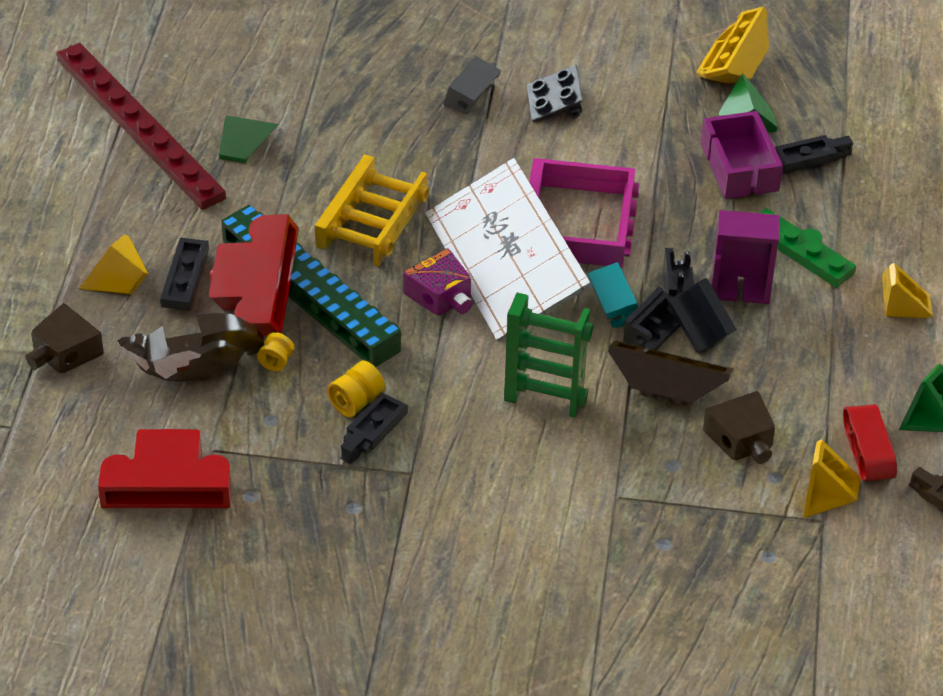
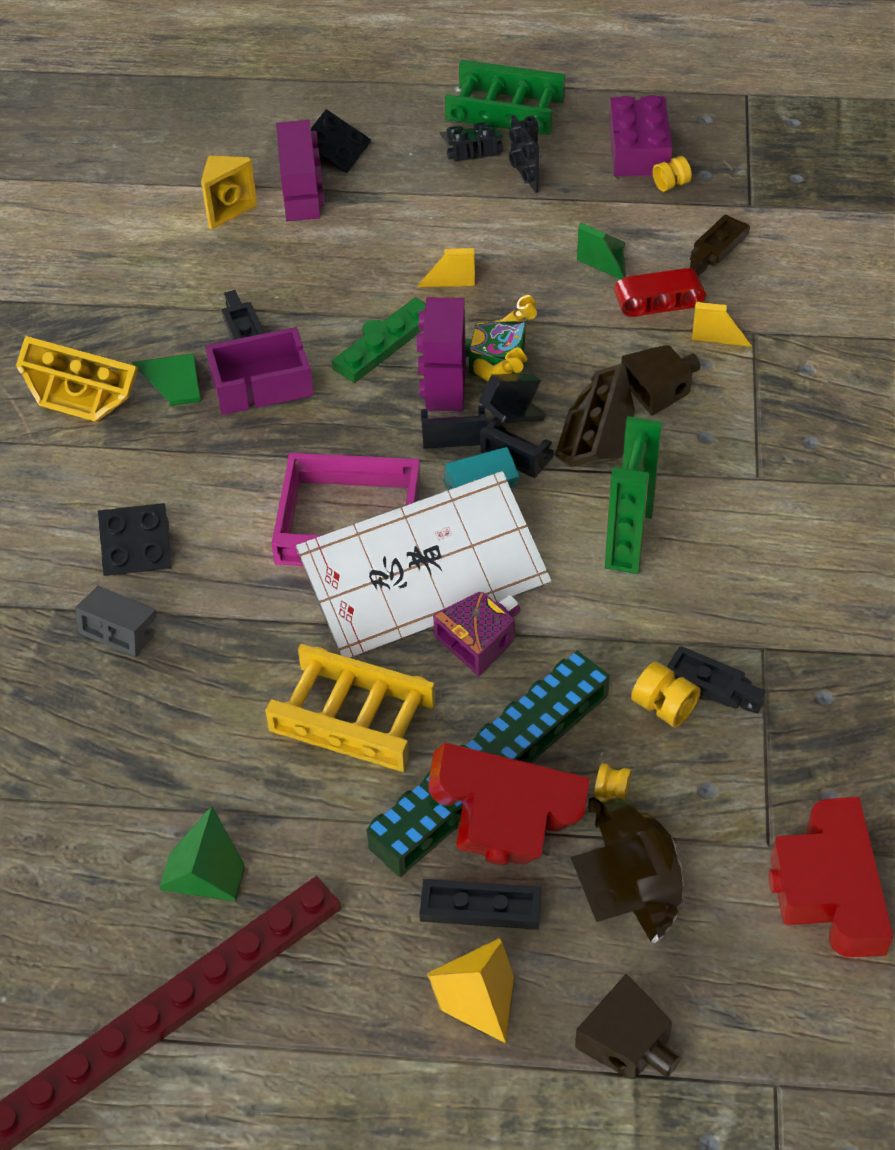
camera: 90 degrees left, 5 degrees up
(778, 314) = (500, 344): none -> torso

